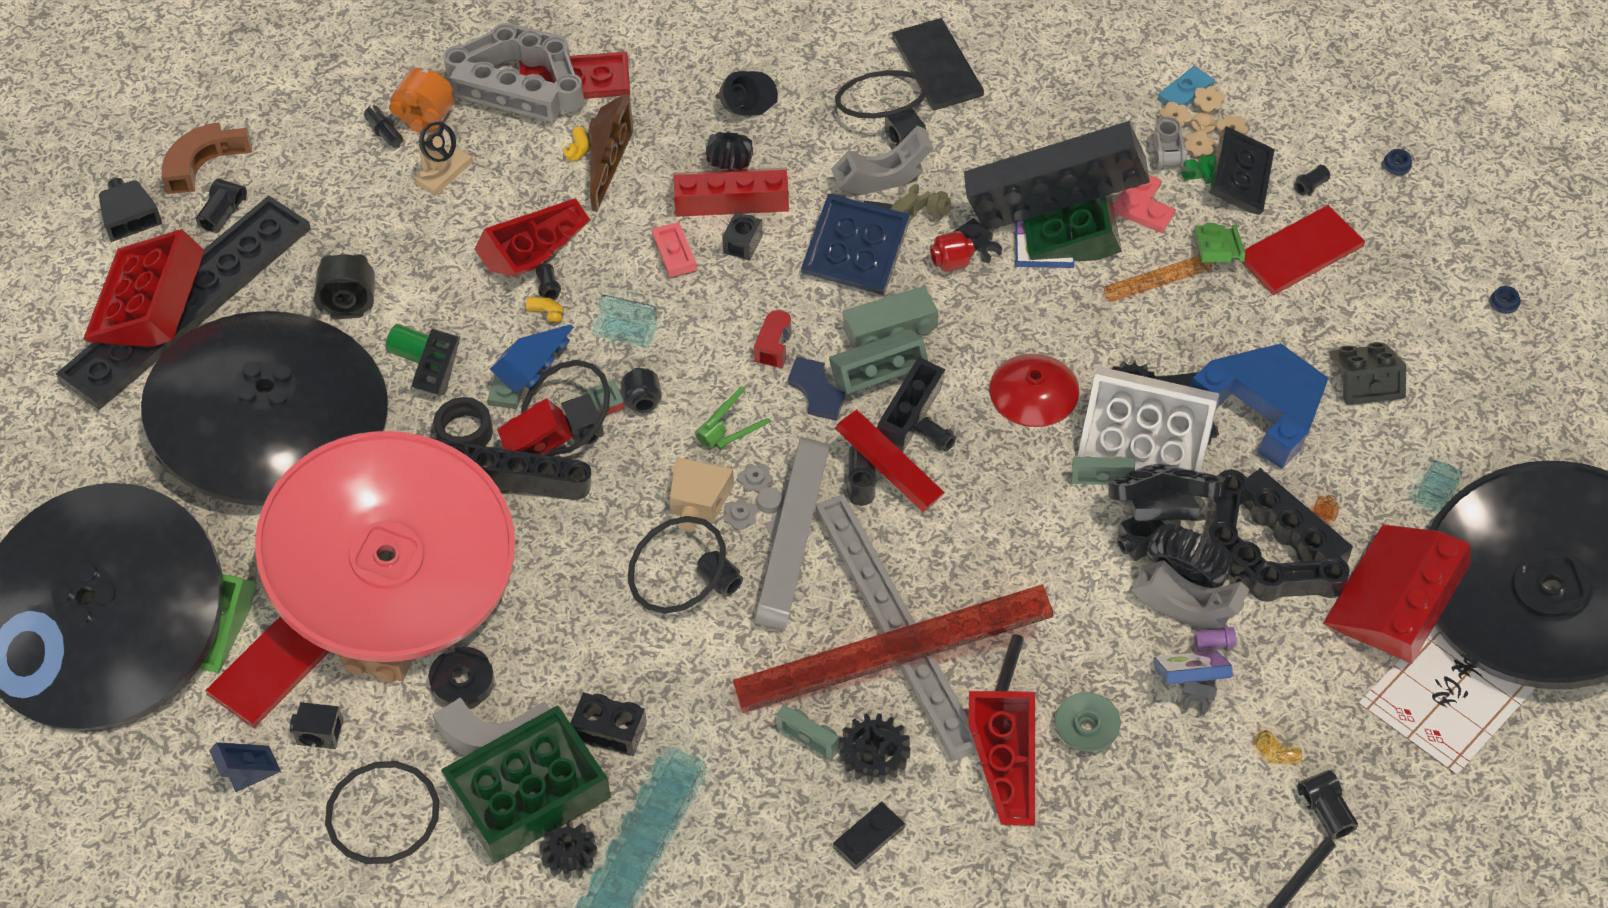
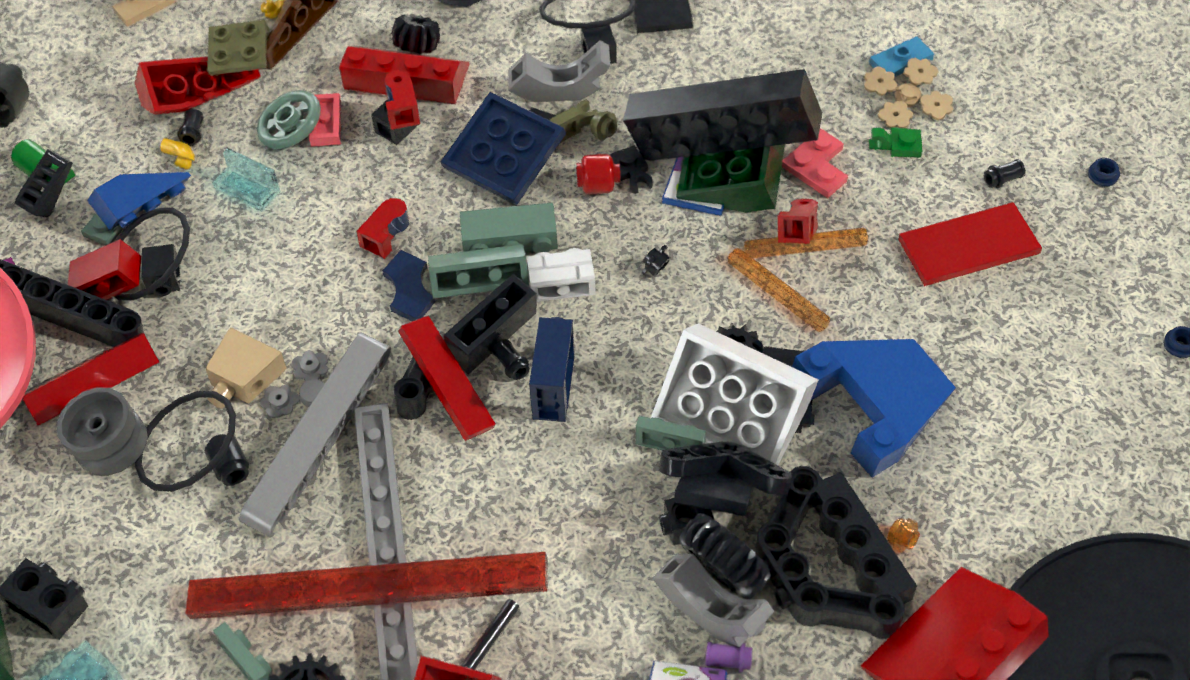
camera: 15 degrees right, 0 degrees up
(460, 407) = (41, 234): black tyre -> none
(561, 530) = (101, 371): none -> red tile
(565, 196) = (237, 47): none -> olive bracket
(599, 572) = (102, 431): none -> dark grey wheel
(616, 401) = (197, 255): sand green plate -> none
(640, 256) = (288, 119): none -> sand green plate
(641, 390) = (230, 251): black head -> none
(713, 429) = (284, 308): bright green plant -> none
(754, 220) = (402, 103): none -> red leg
(956, 348) = (561, 274): none -> white brick
(982, 433) = (552, 369): none -> dark blue window
(1032, 320) = (656, 261): none -> black plate
(1034, 401) = (632, 347): red dish -> none
(1148, 324) = (779, 290): none -> clear orange axle
(1149, 259) = (799, 223): none -> red leg
(1168, 143) = (862, 108): light grey piece -> none
(1217, 243) = (880, 219): bright green plate -> none
(1242, 171) = (930, 150): black tile -> none
(1370, 373) = (1002, 392): pearl dark grey bracket -> none
(1438, 485) = (1041, 535): clear light blue brick -> none

